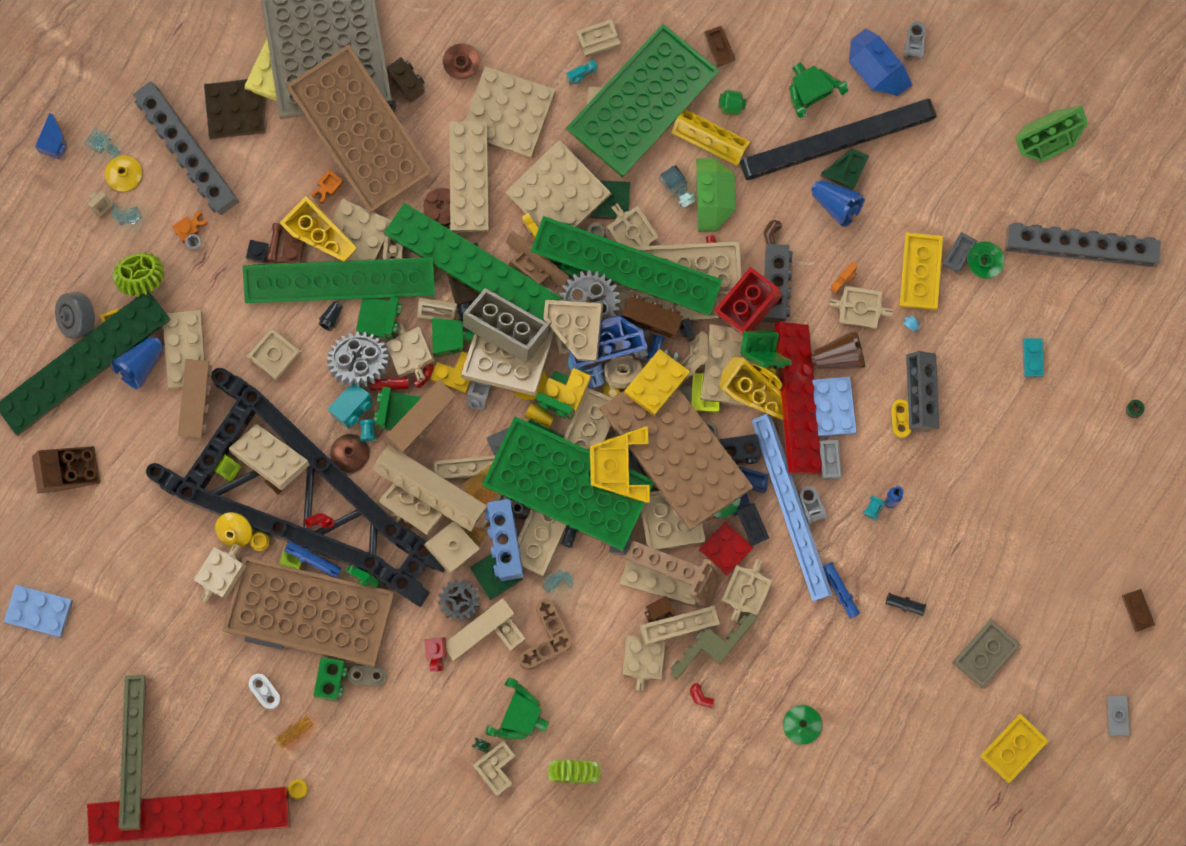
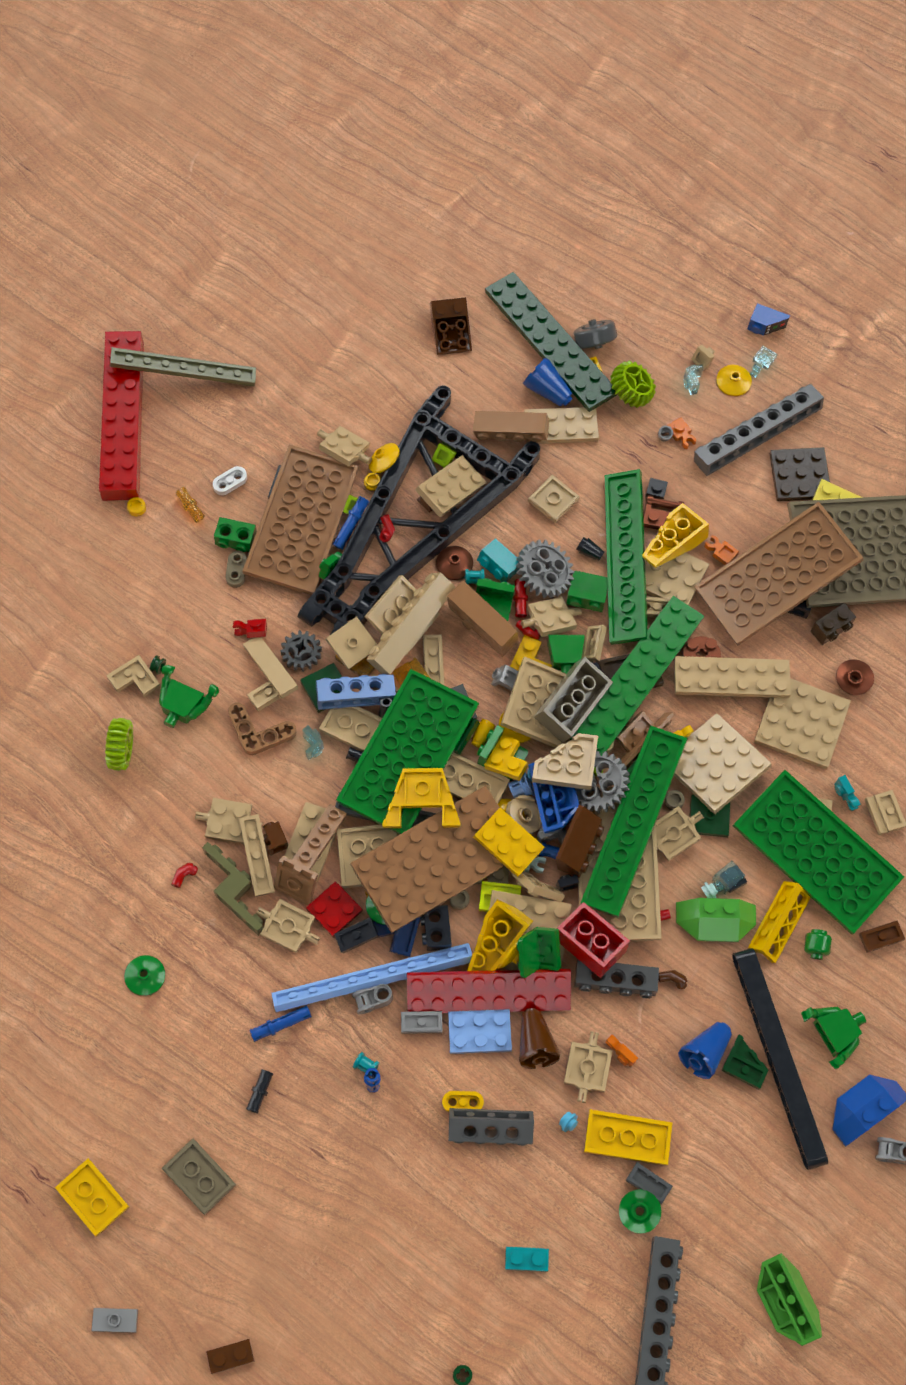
camera: 90 degrees right, 10 degrees down
(38, 611) = (322, 304): light blue plate -> none

